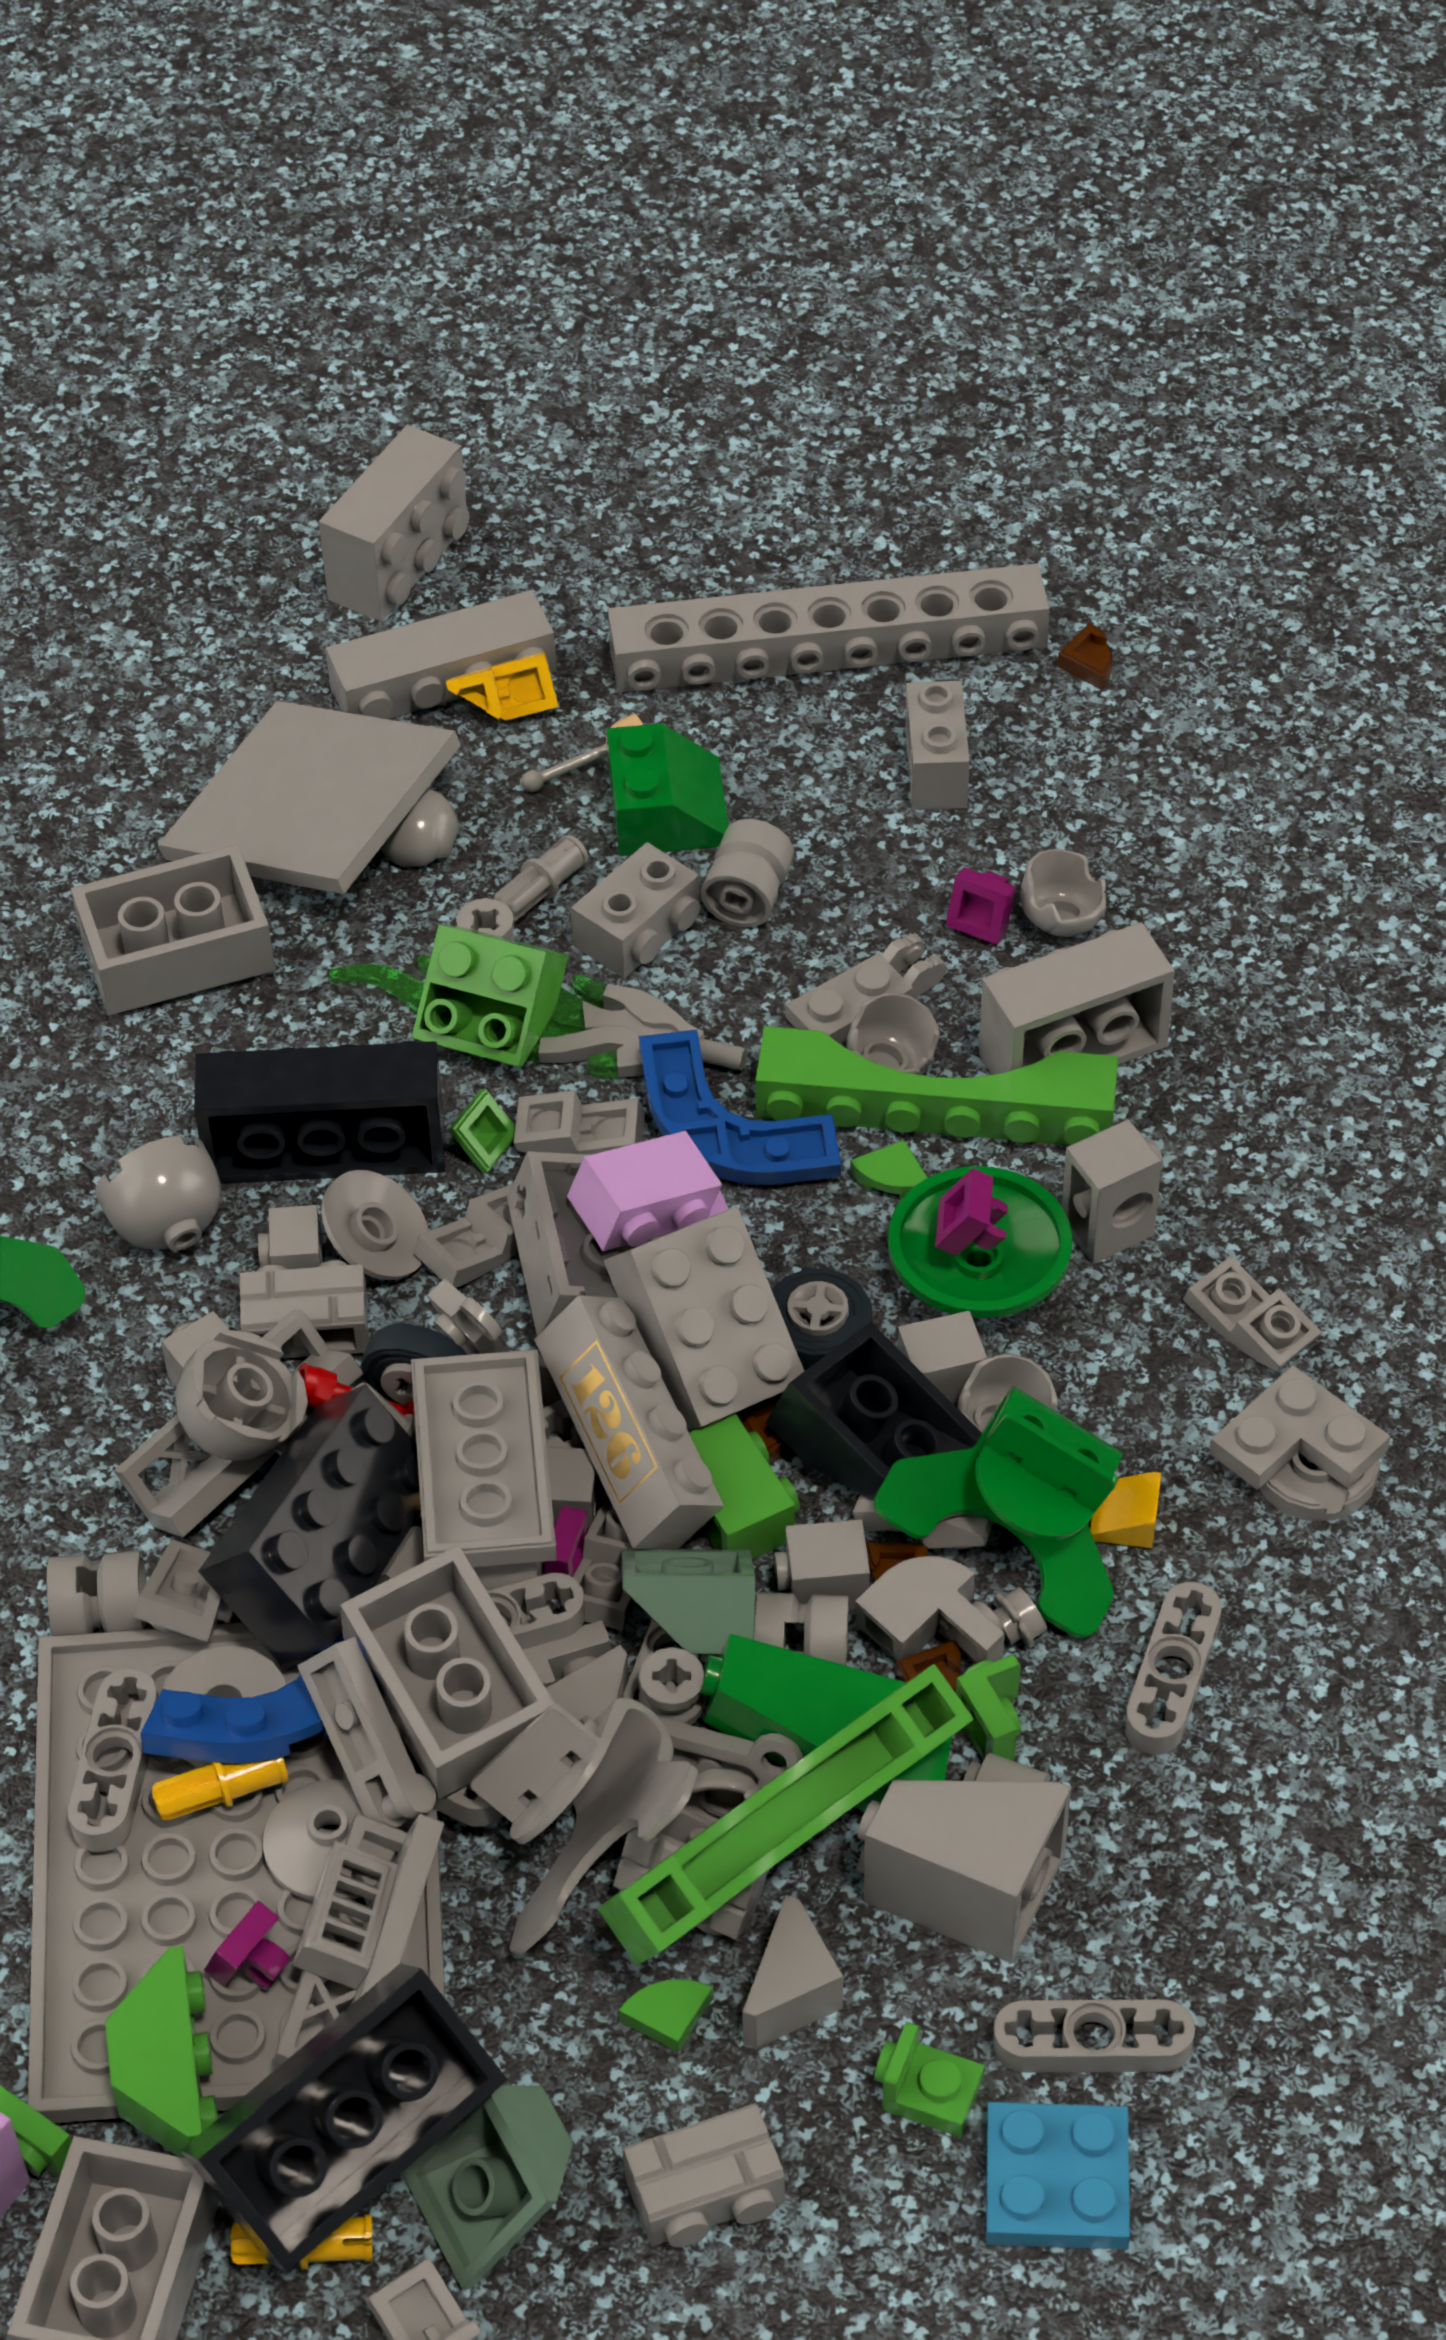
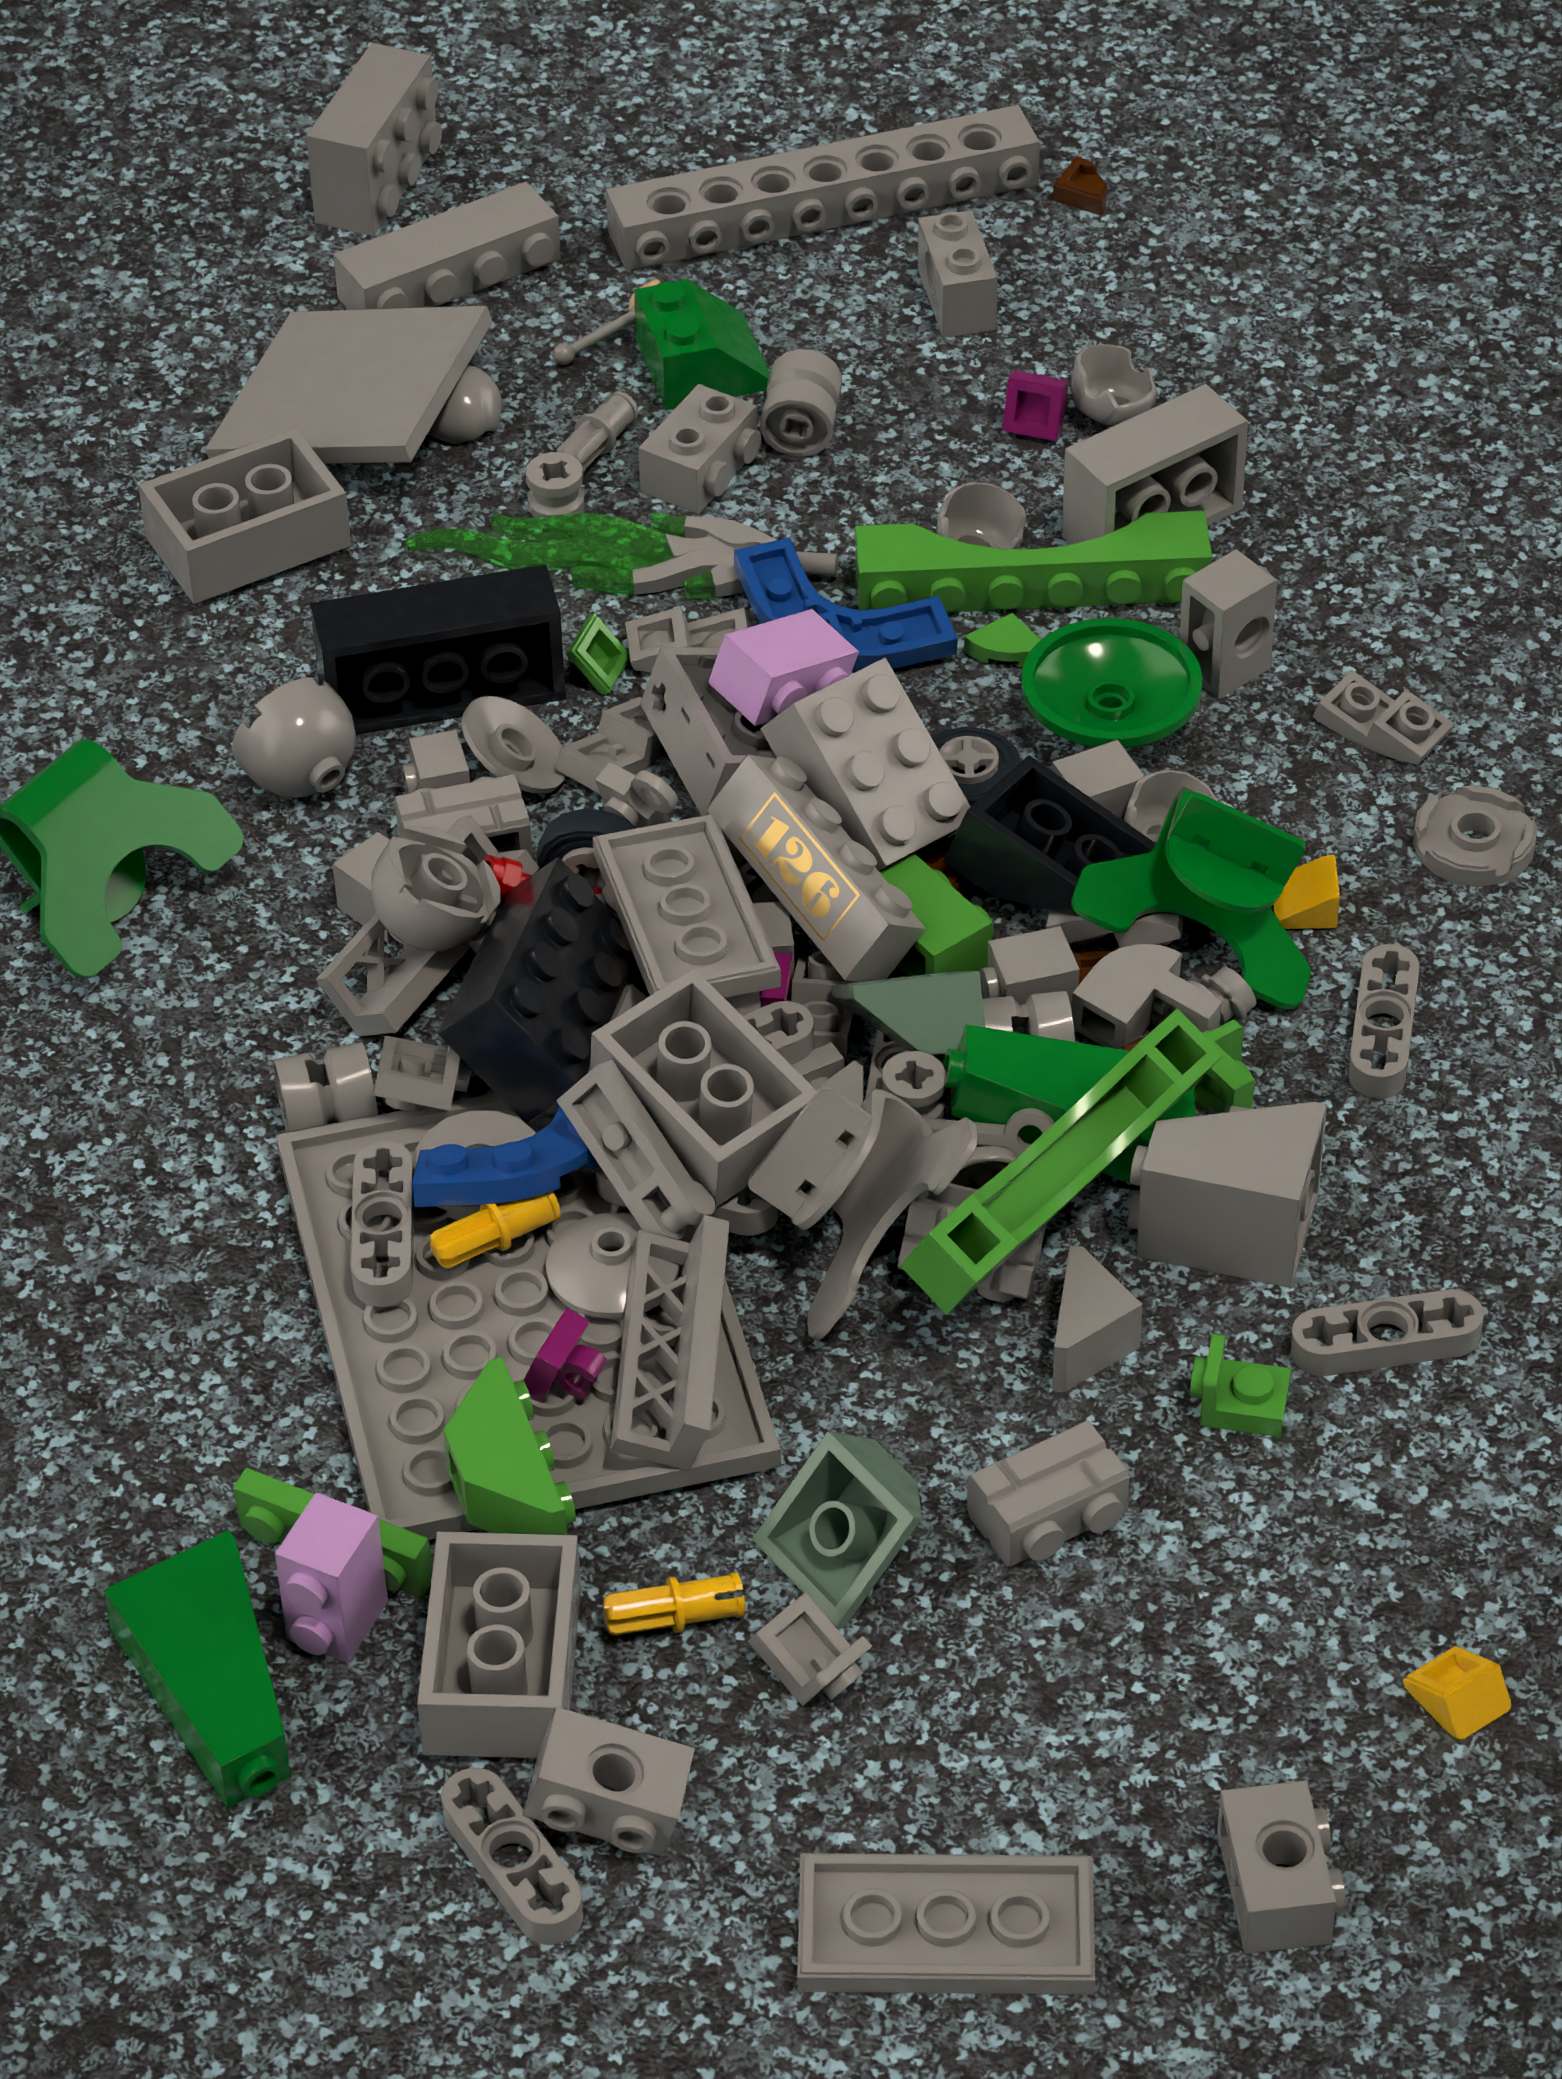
camera: 10 degrees left, 5 degrees down
(332, 1958) = (644, 1345): light grey slope -> none
(344, 2116) = (703, 1467): black brick -> none
(488, 994) = (579, 527): bright green slope -> none
(509, 688) = (523, 272): yellow slope -> none
(667, 2010) = (973, 1368): bright green tile -> none
(836, 1002) = (923, 497): light grey hinge -> none
(968, 1215) = (1100, 654): magenta tile -> none
(1057, 2175) = (1382, 1452): dark azure plate -> none
(1302, 1418) = (1451, 795): light grey plate -> none

